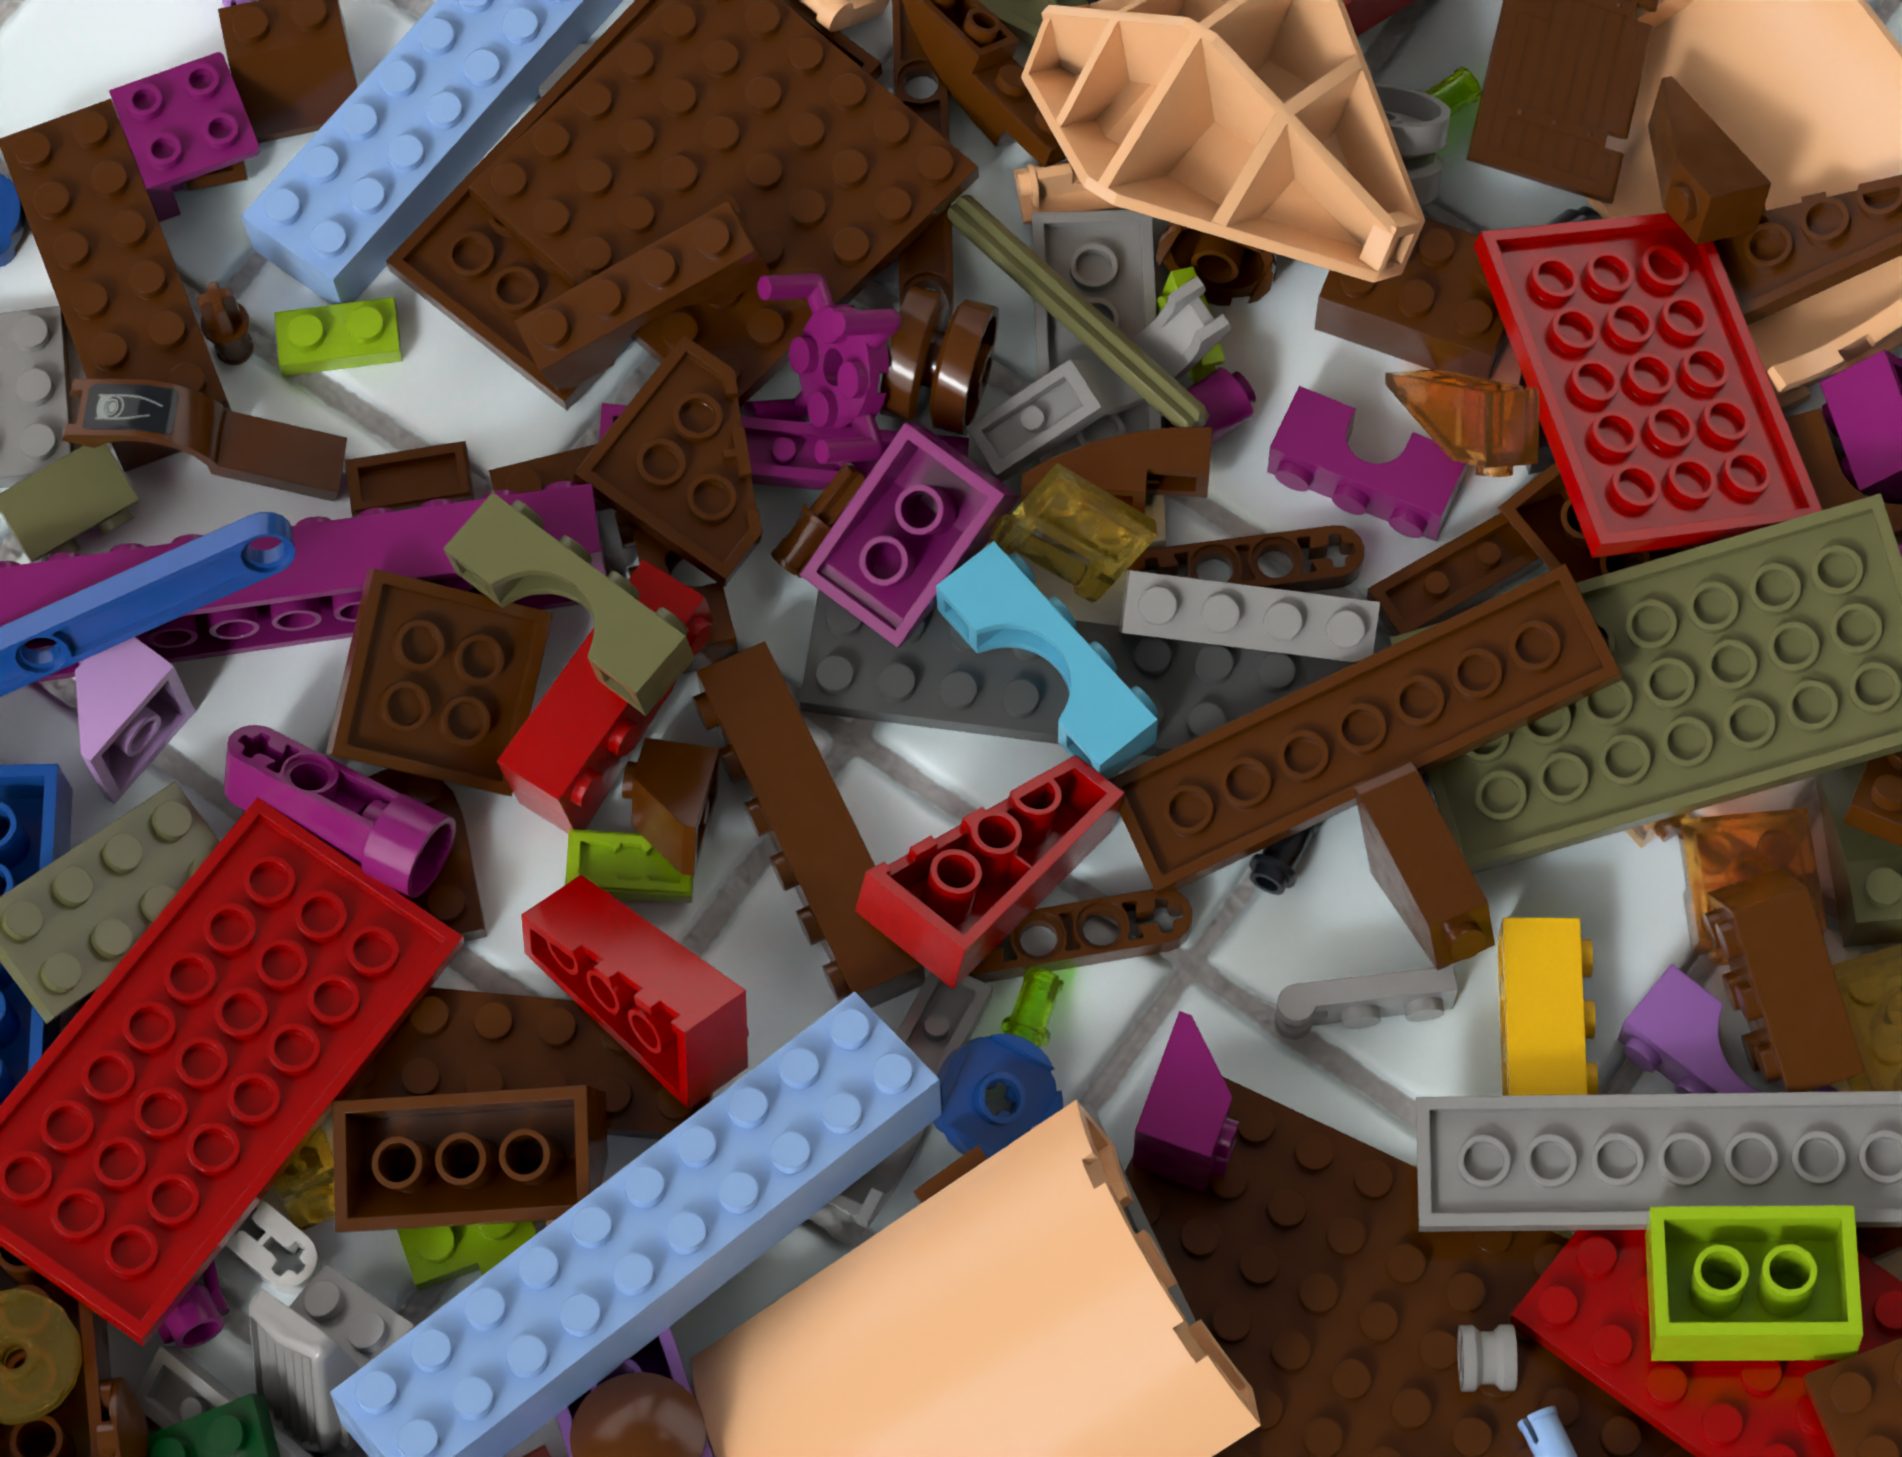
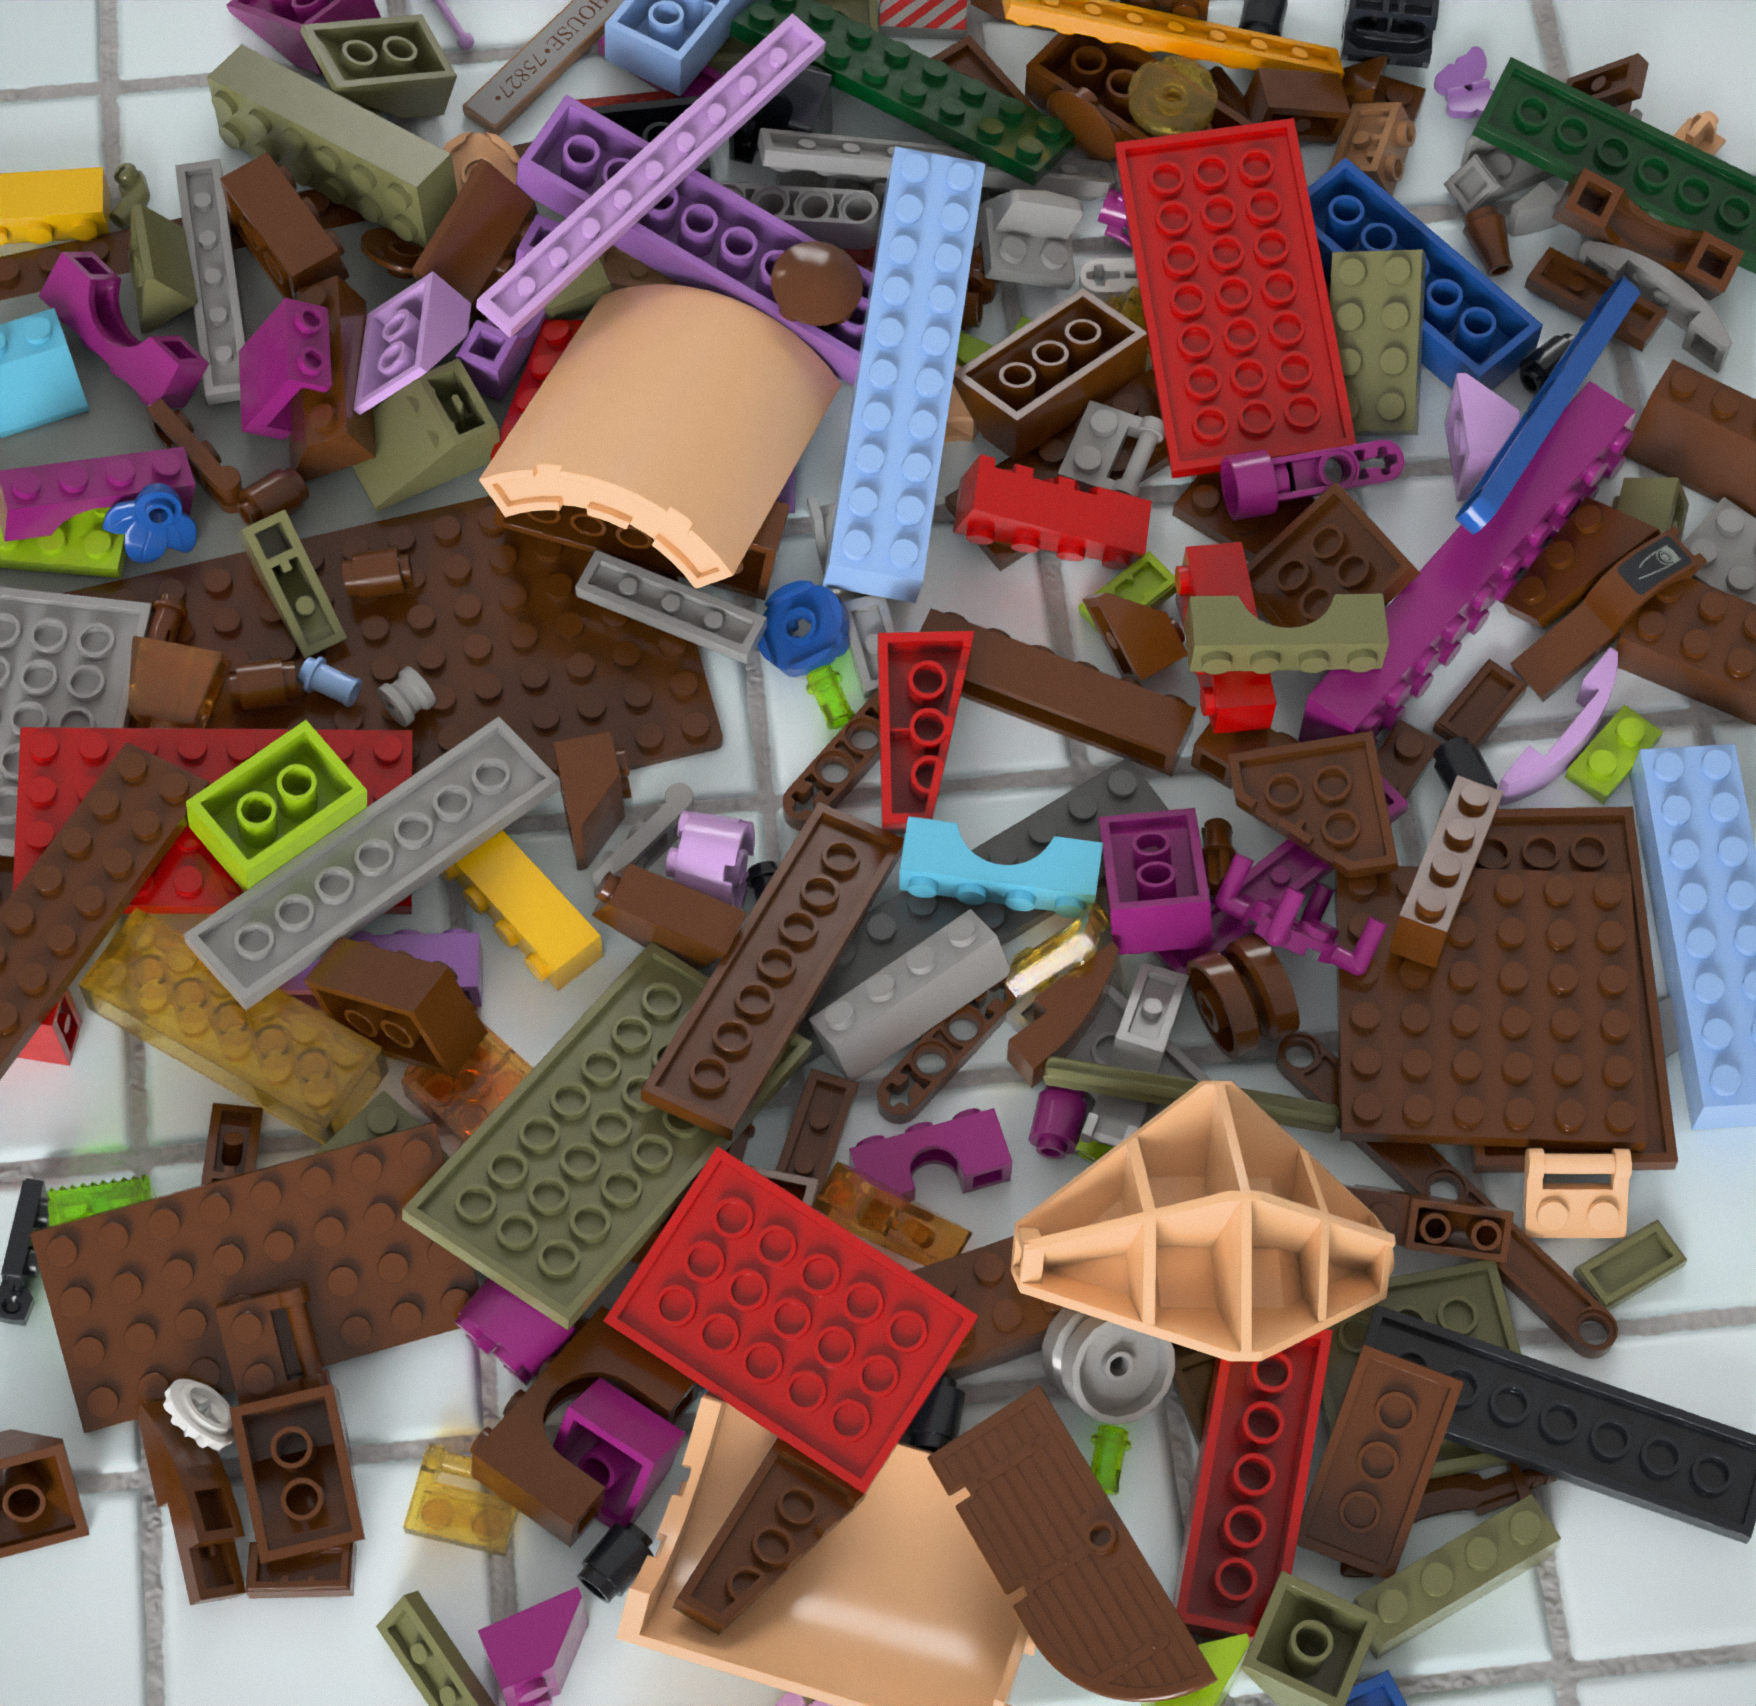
camera: 135 degrees right, 5 degrees down
(154, 503) = (1575, 561): none -> reddish brown wing
(225, 324) = (1674, 686): reddish brown axle -> none
(365, 367) = (1535, 771): none -> lavender slope
(502, 419) = (1461, 759): none -> black brick
(507, 1038) = (1099, 445): none -> light grey plate
(1186, 1117) = (683, 677): magenta slope -> none
(1325, 904) = (713, 855): none -> lavender brick
(1376, 1081) = (592, 791): none -> reddish brown slope
(1701, 172) = (878, 1503): reddish brown slope -> none

